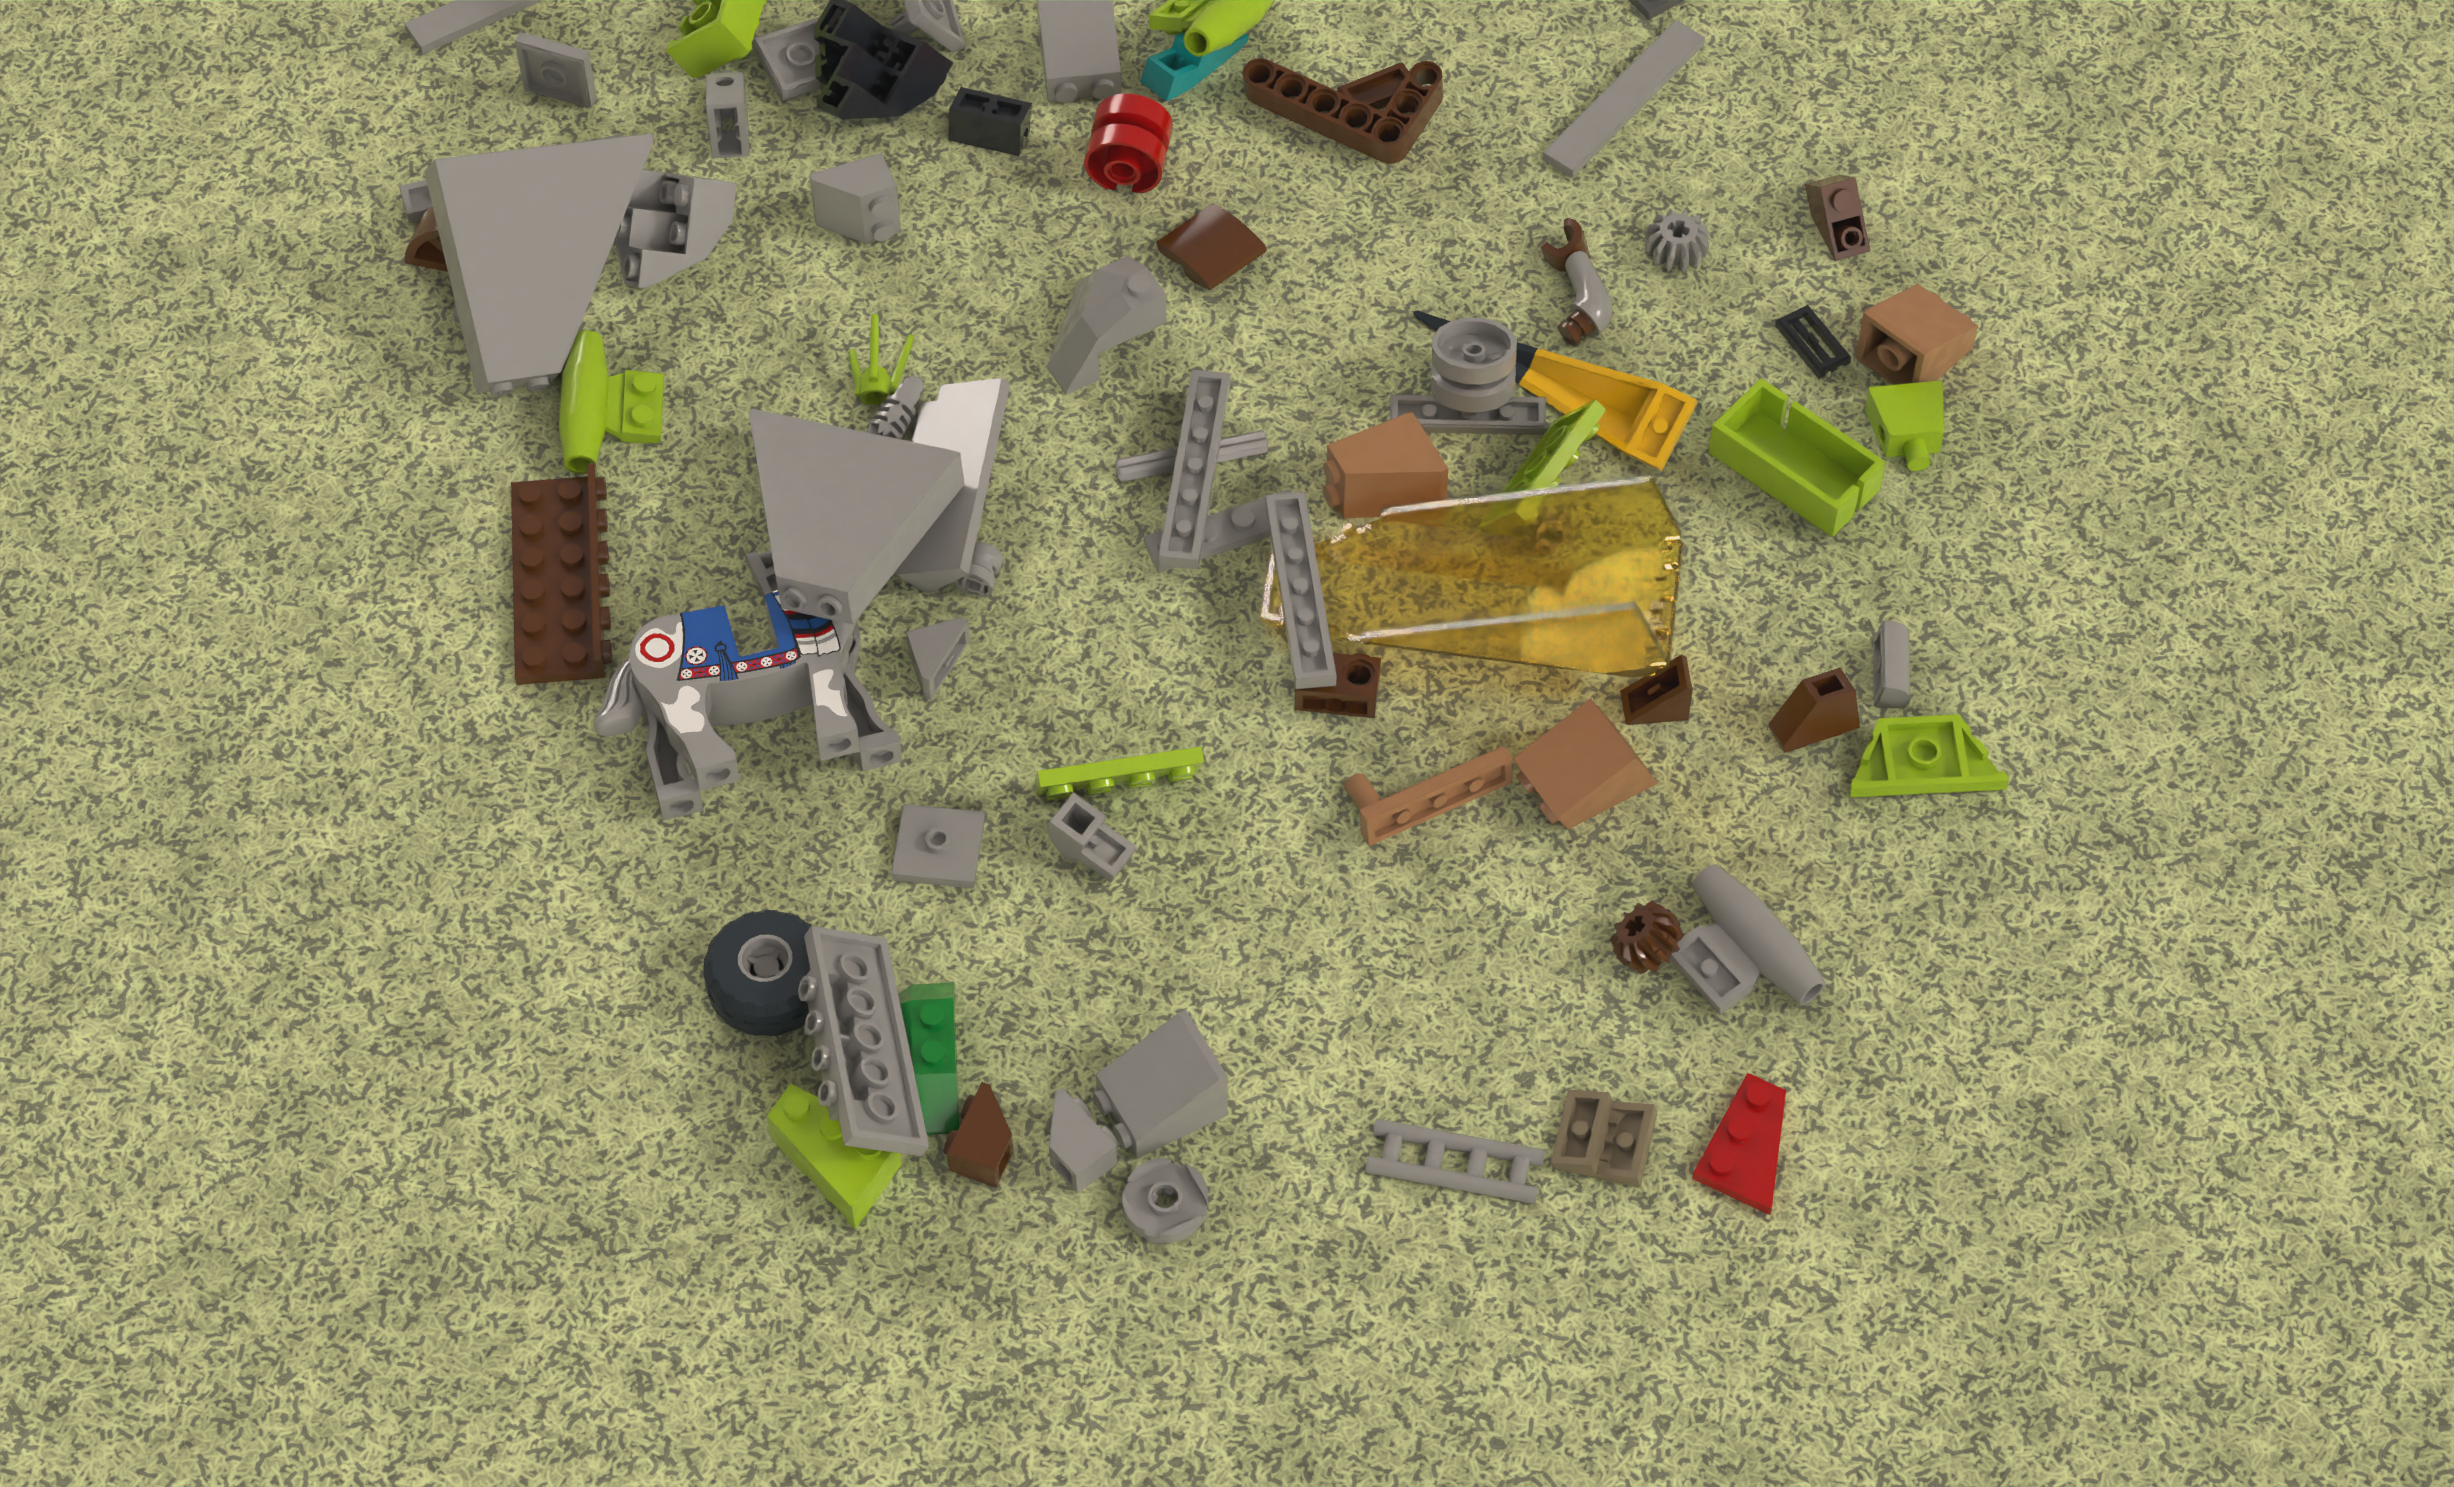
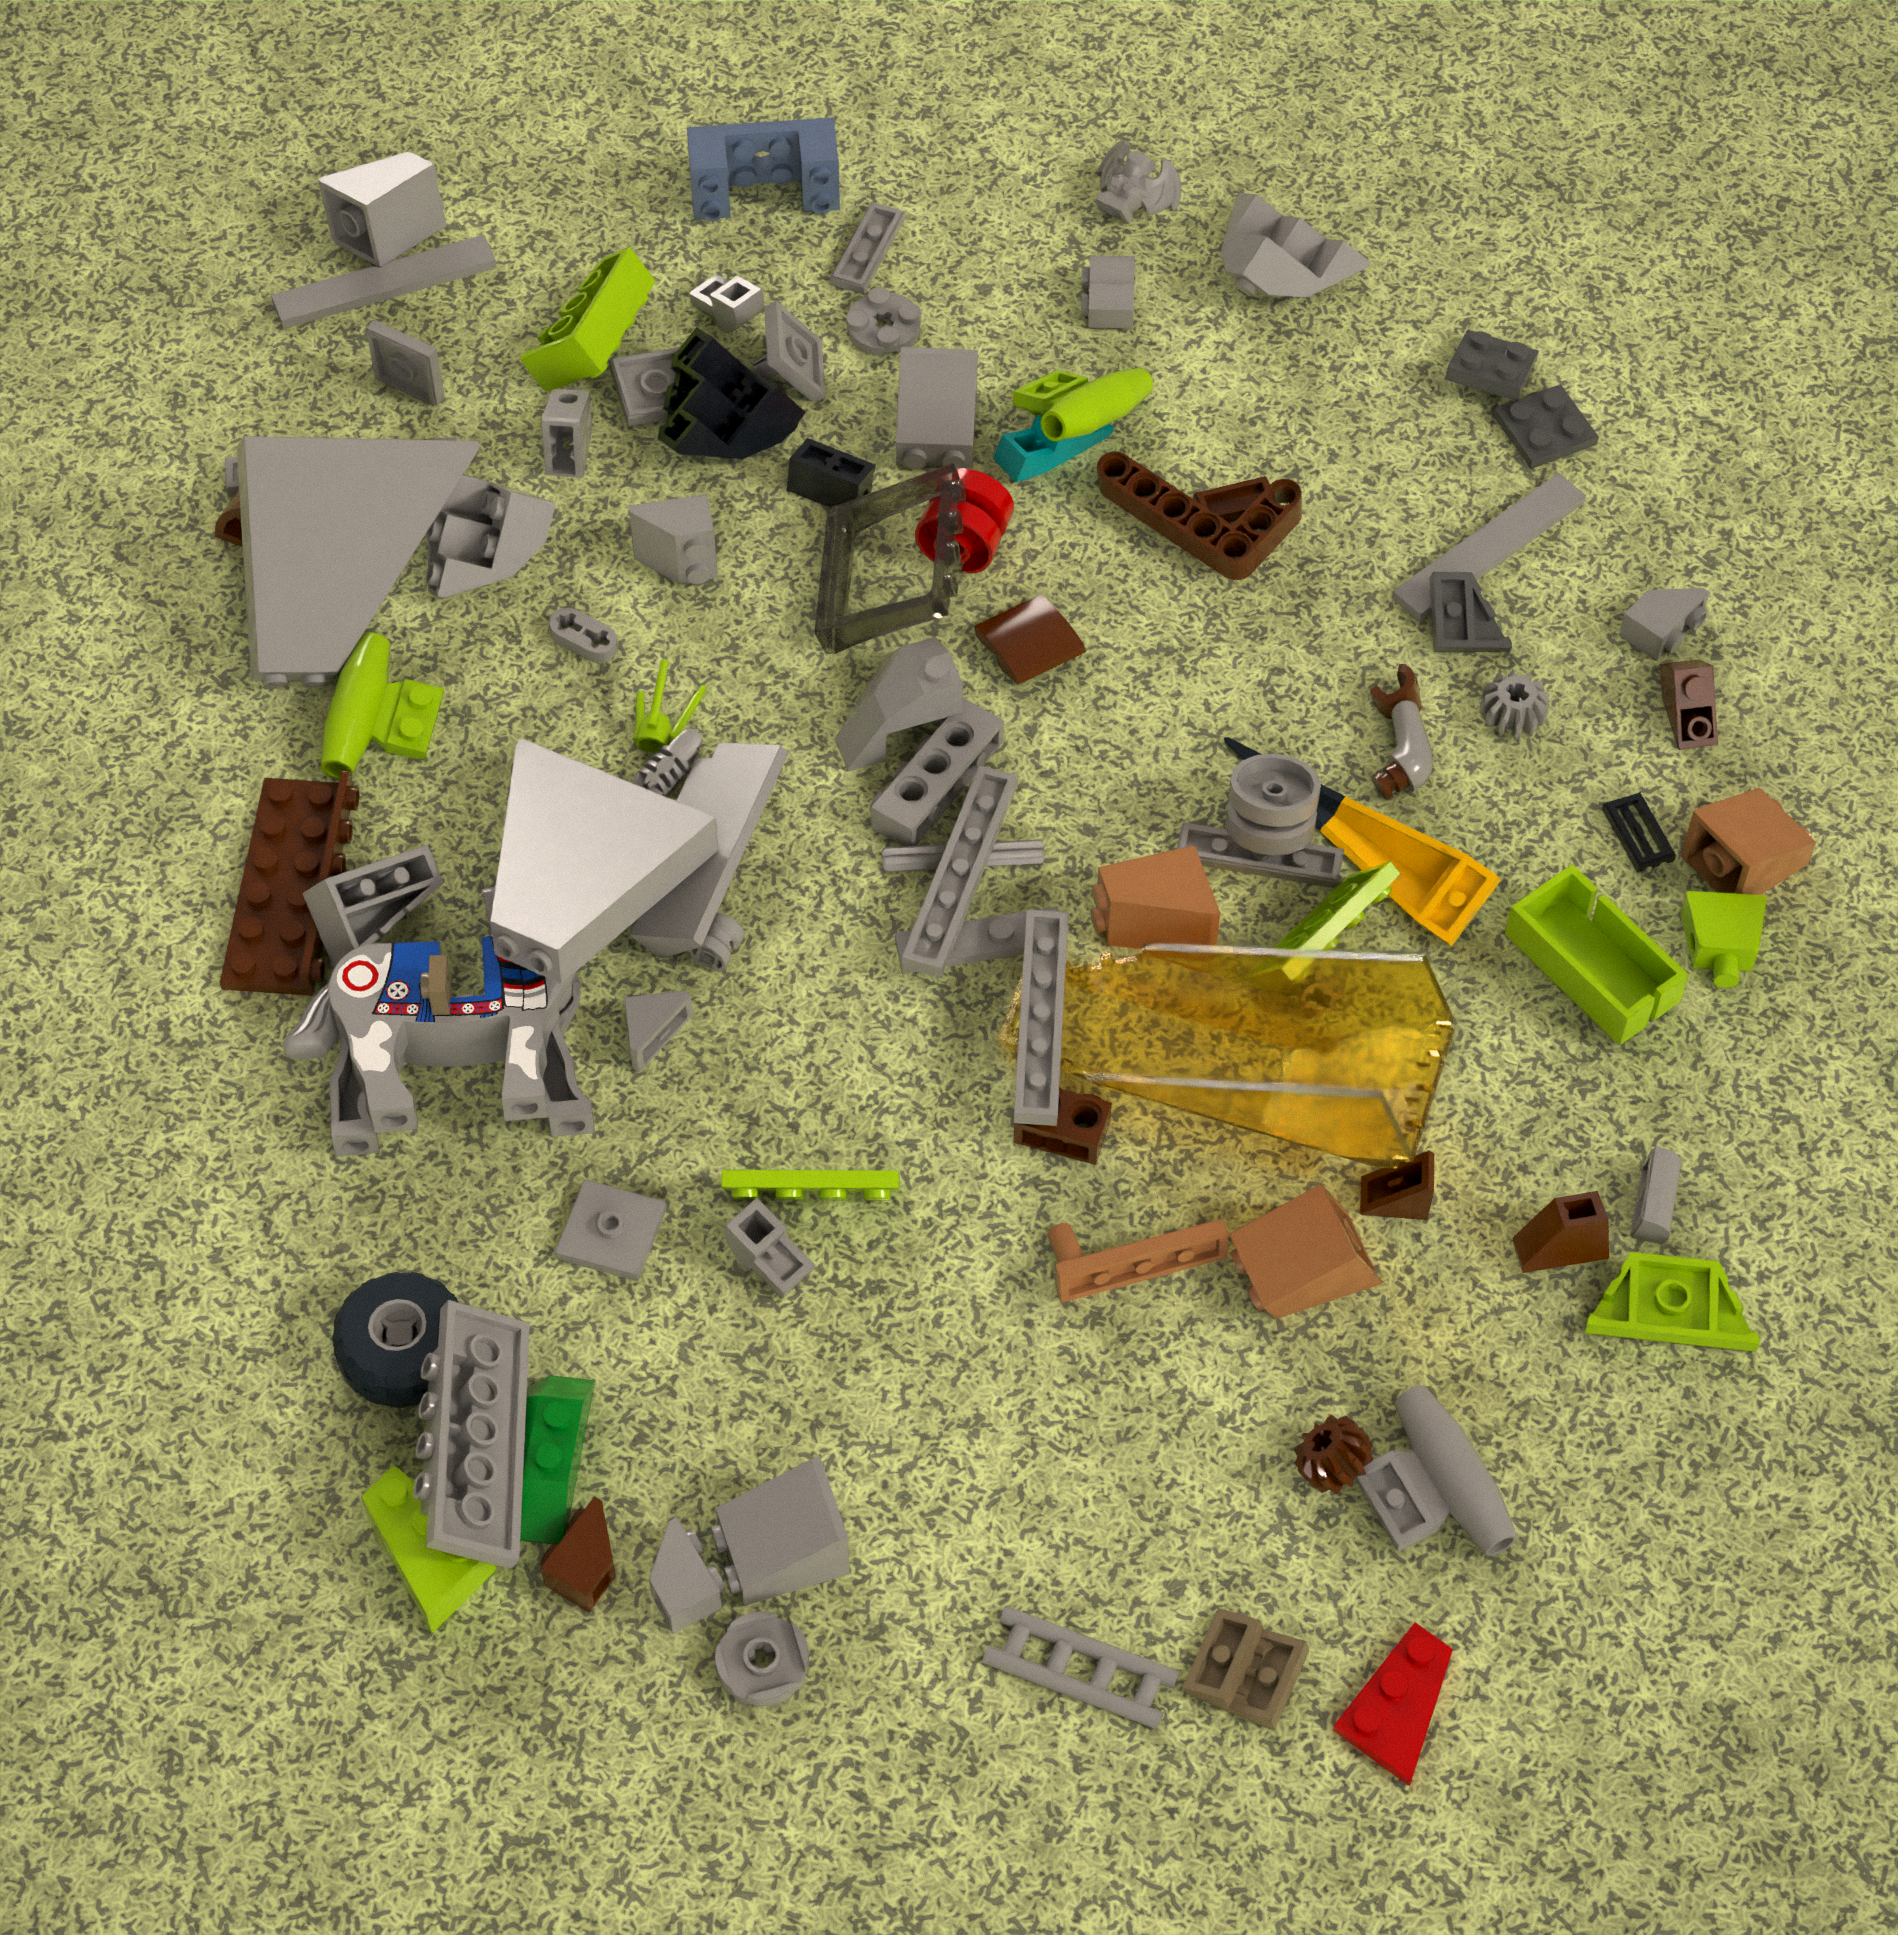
camera: 10 degrees right, 0 degrees up
(645, 580) = (369, 900): none -> light grey wedge
(734, 643) = (437, 984): none -> dark tan plate
(785, 304) = (585, 632): none -> light grey beam
(1016, 158) = (845, 521): none -> clear smoke windscreen
(1151, 385) = (953, 753): none -> light grey brick
(1612, 166) = (1462, 616): none -> dark grey wing
(1798, 142) = (1662, 618): none -> light grey slope

